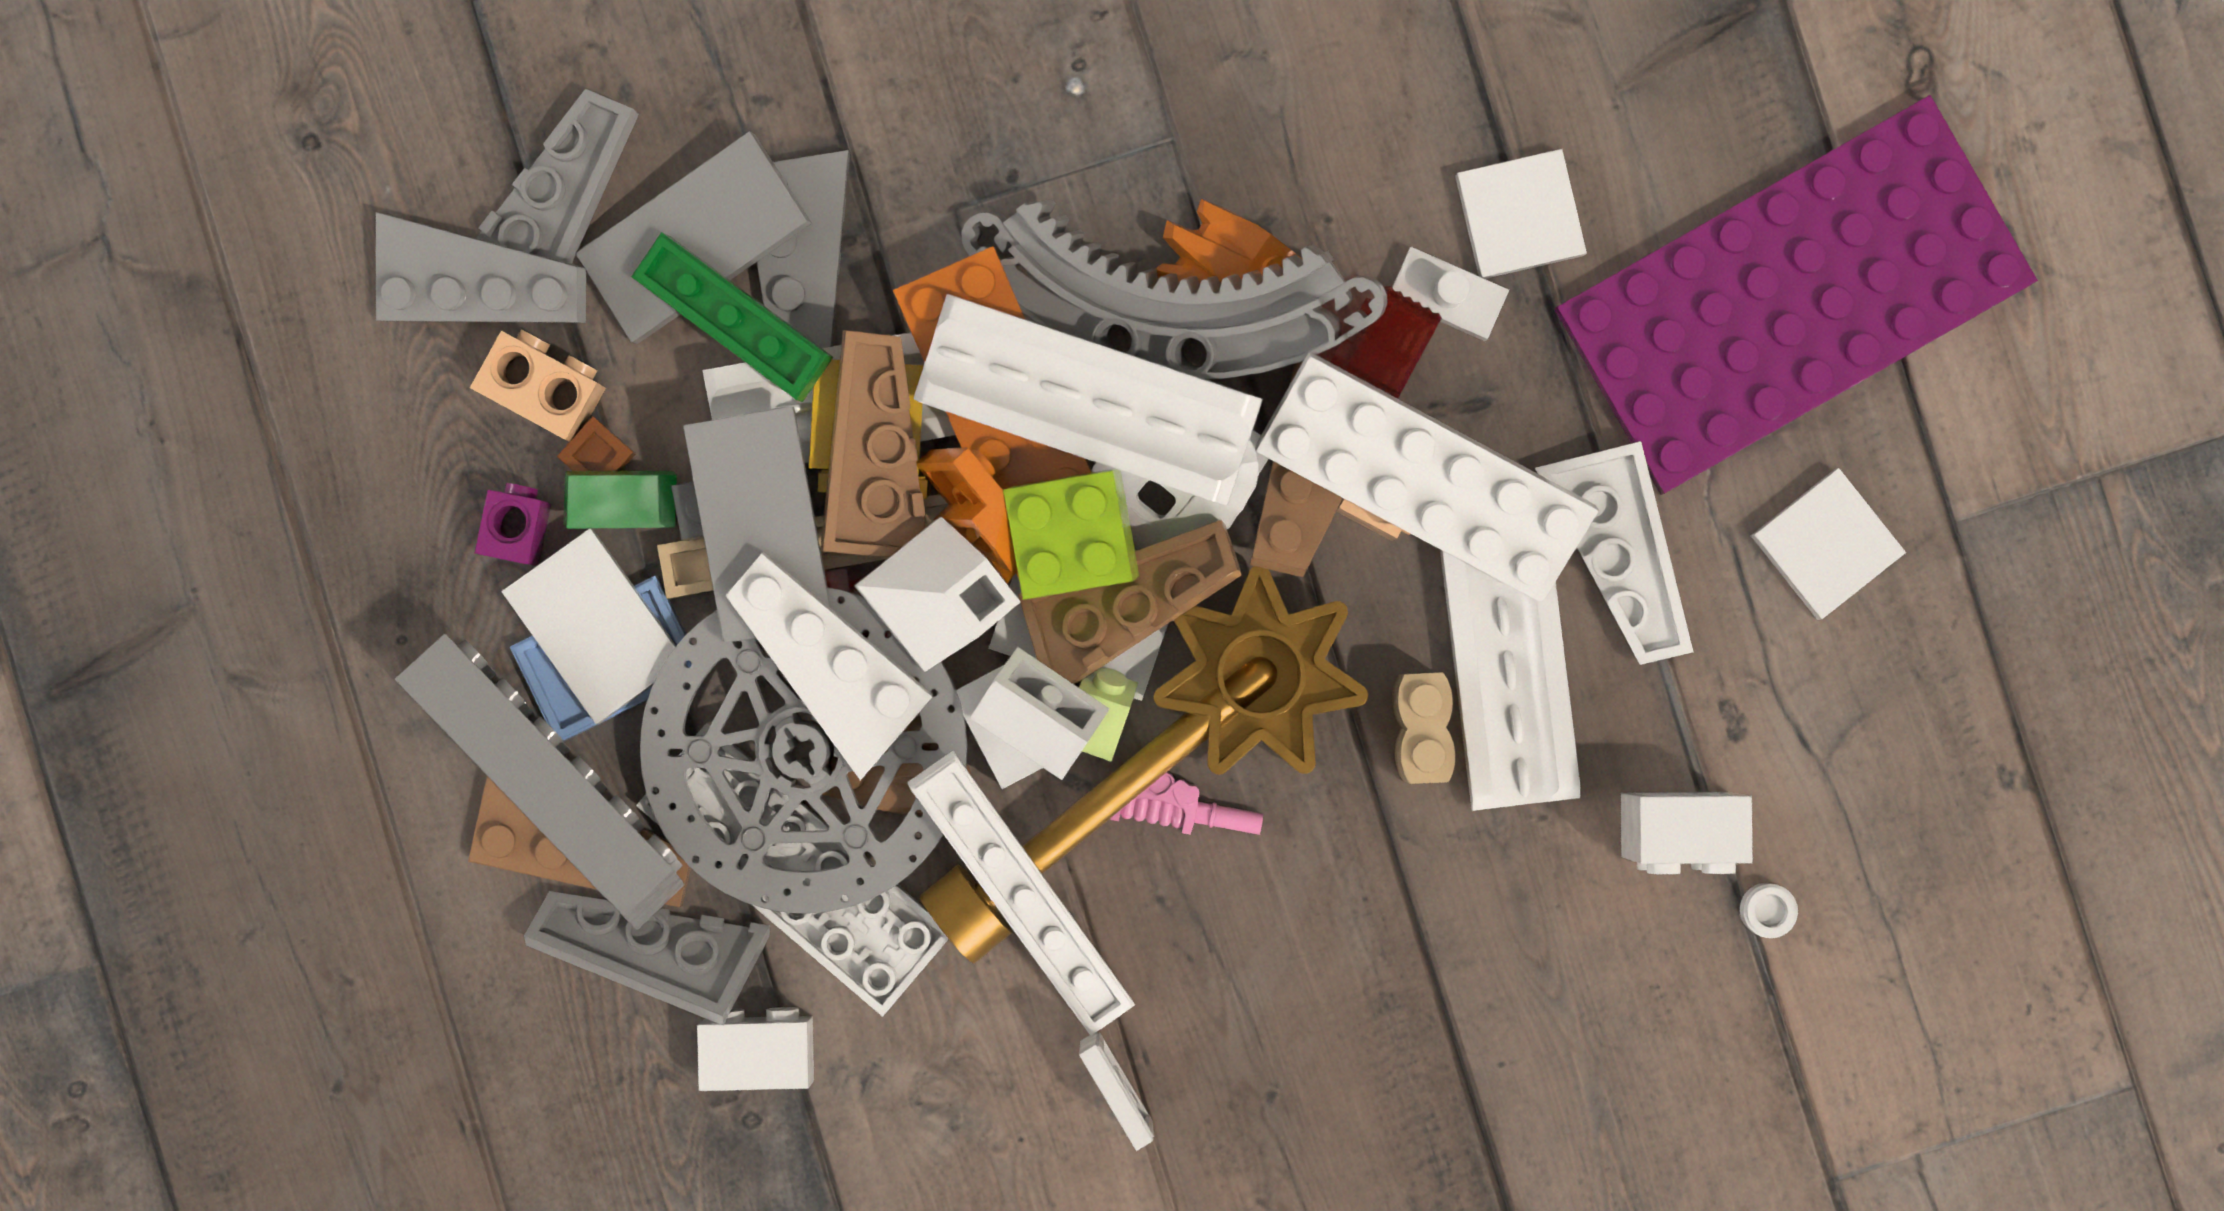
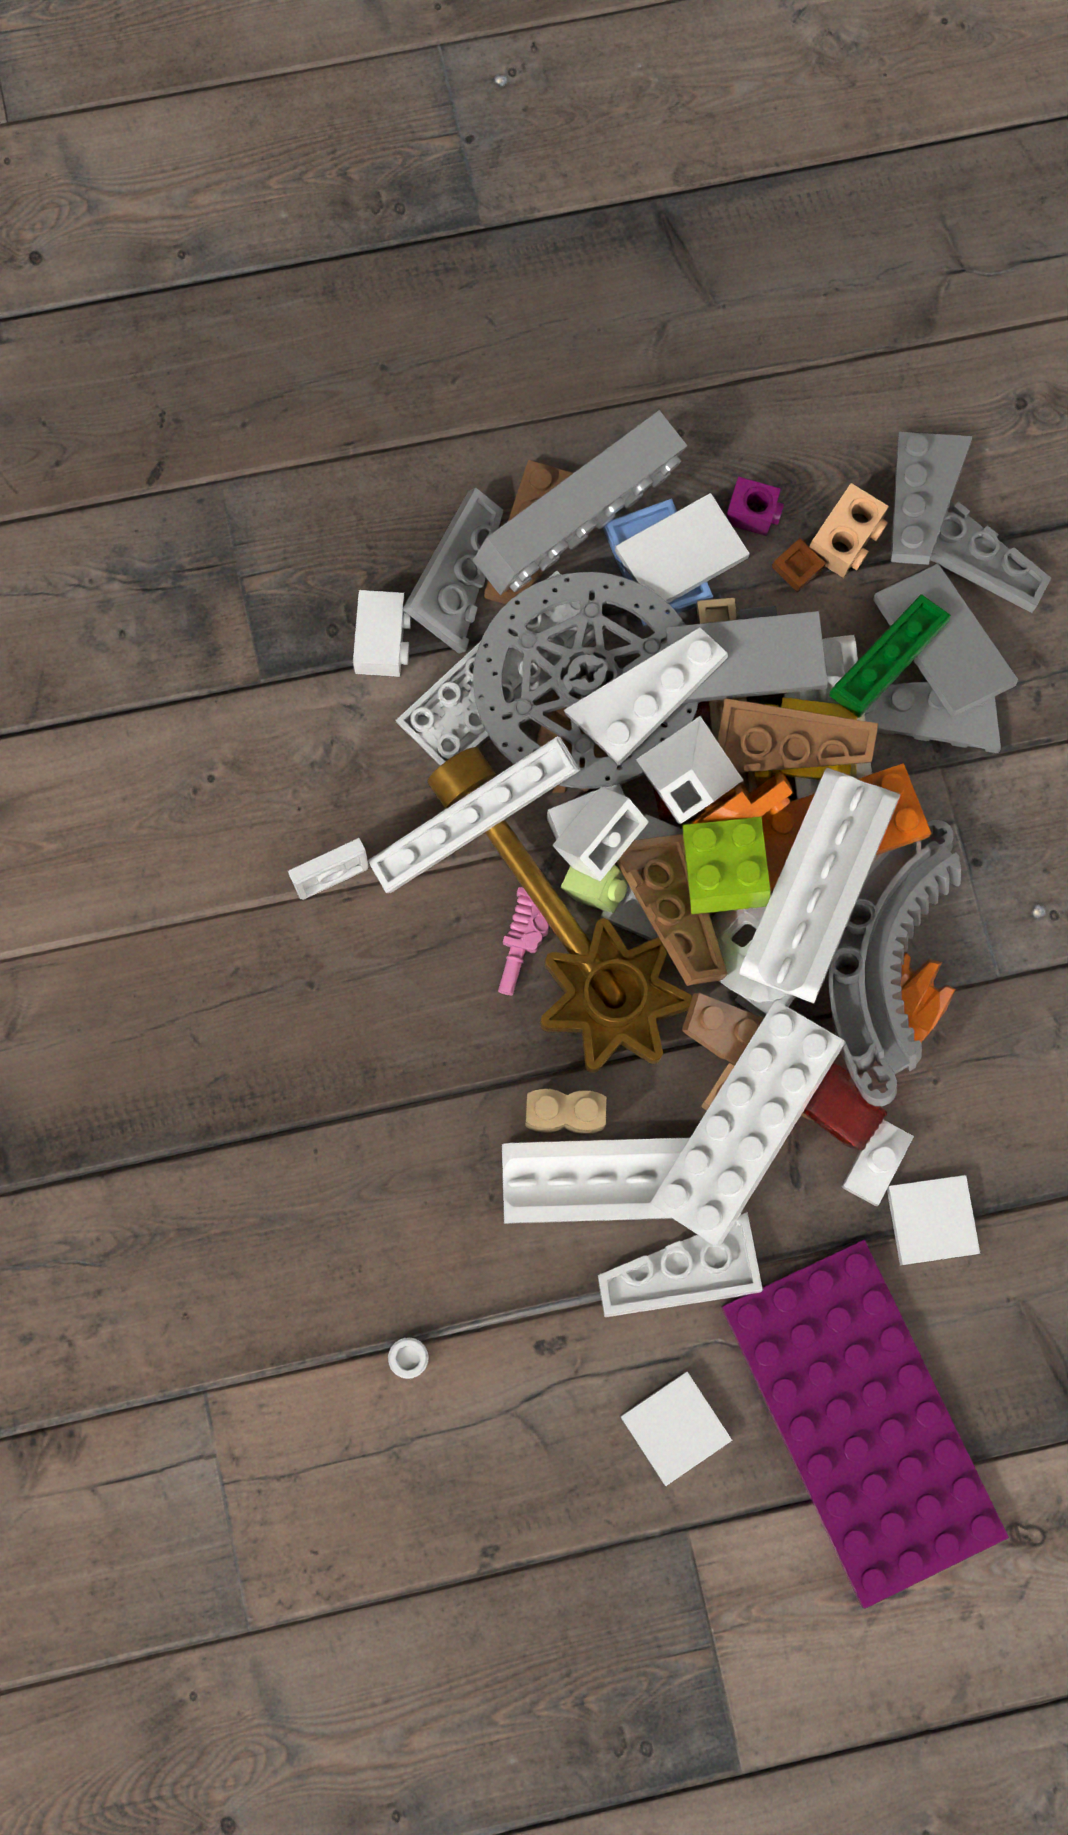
camera: 90 degrees right, 10 degrees down
(619, 499) = (768, 573): green tile -> none
(1686, 828) = (475, 1293): white brick -> none

